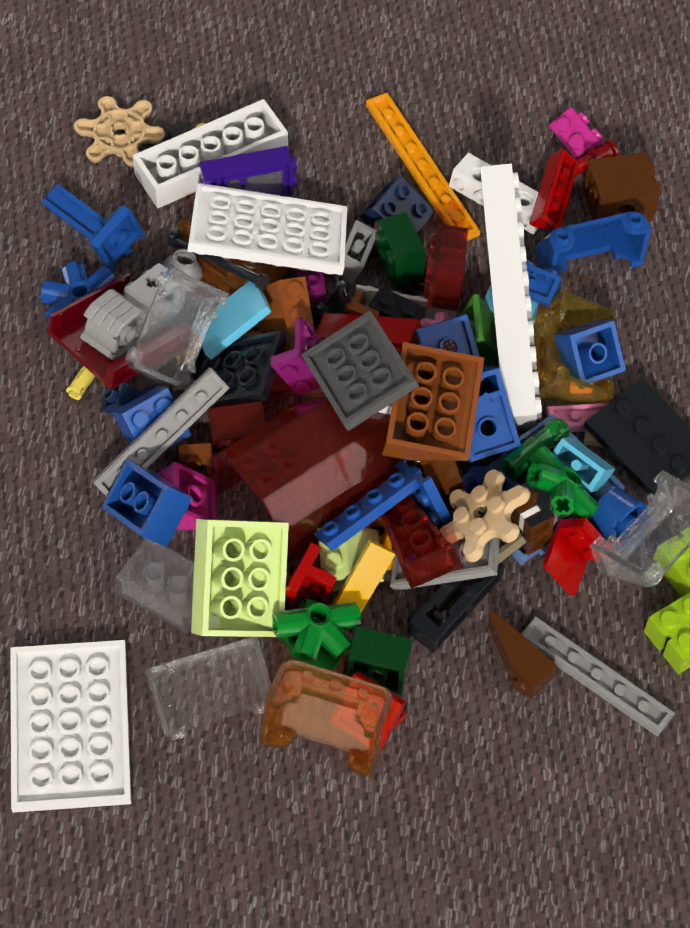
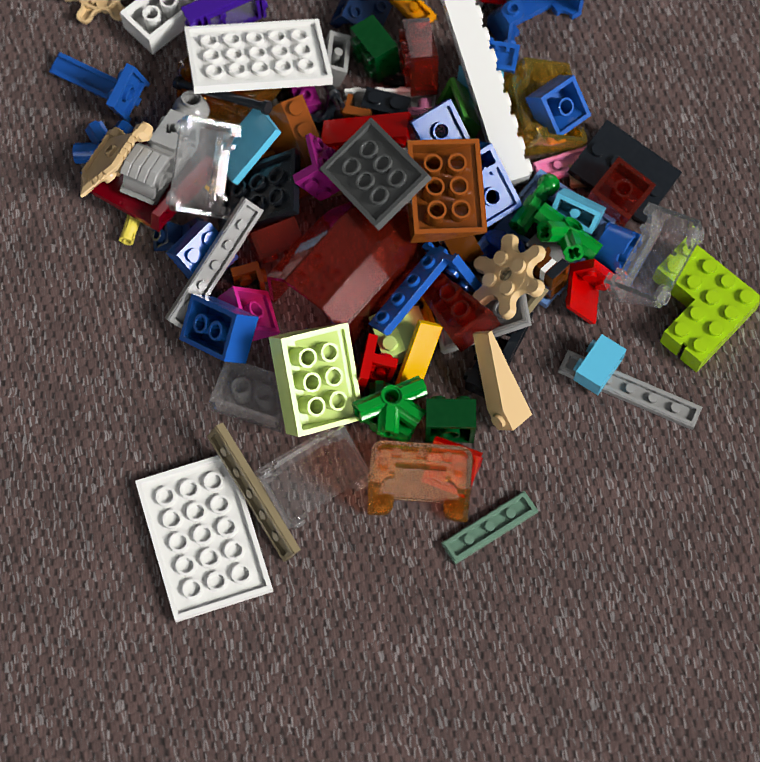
camera: 10 degrees left, 10 degrees up
(78, 295) = (110, 154): none -> tan shield
(137, 689) = (253, 492): none -> dark tan tile
(395, 790) = (489, 527): none -> sand green tile
(445, 639) = (500, 388): none -> tan slope
(524, 663) = (567, 392): reddish brown slope -> none
(566, 636) = (599, 364): none -> medium azure brick
(637, 455) = (621, 191): none -> clear red brick

